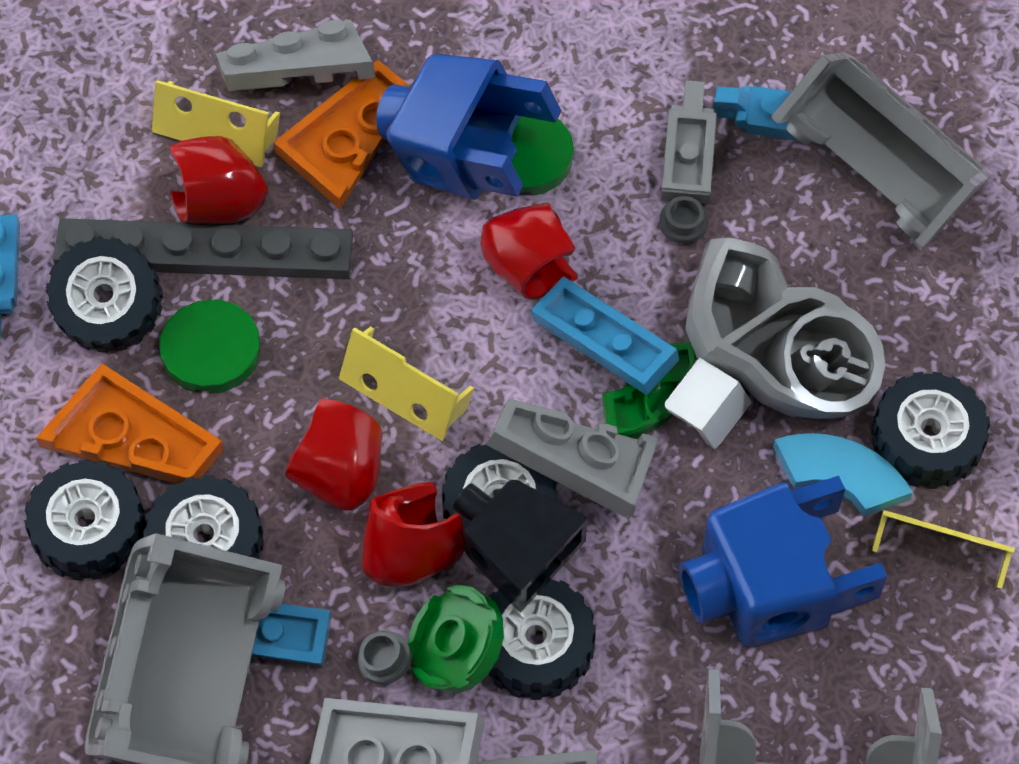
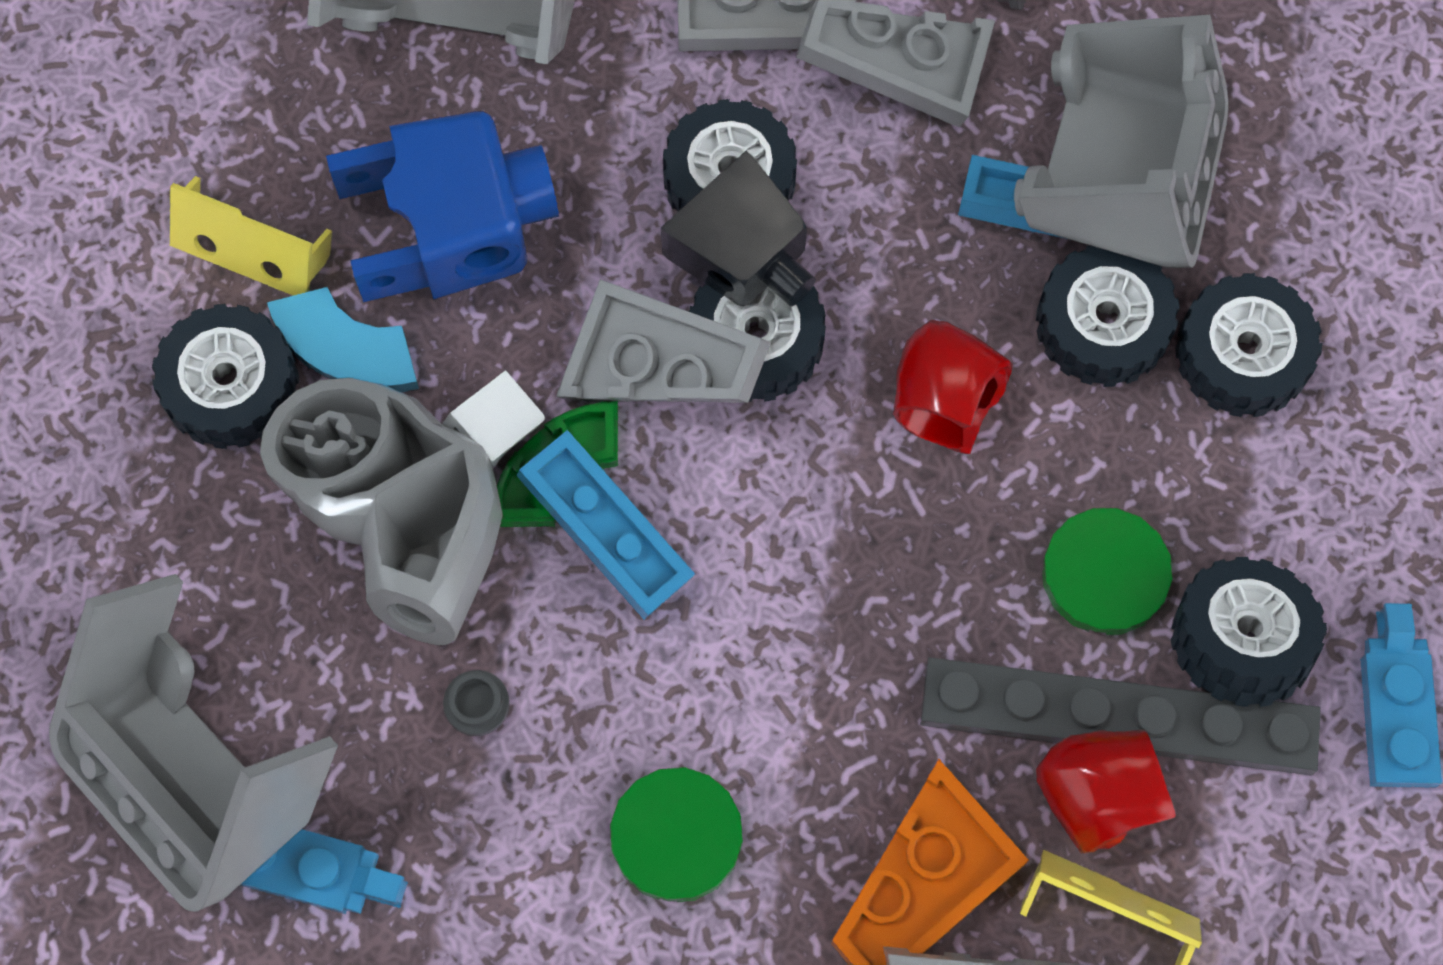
camera: 175 degrees left, 10 degrees up
(130, 431) = (1203, 461): orange wing -> none
(384, 657) = (900, 163): dark grey plate -> none
(401, 384) = (871, 480): light yellow piece -> none
(406, 540) = (865, 274): red piece -> none
(456, 639) = (820, 159): green tile -> none
(460, 122) = (775, 836): blue piece -> none
(528, 249) = (689, 653): red piece -> none
(689, 147) = (449, 814): light grey hinge -> none

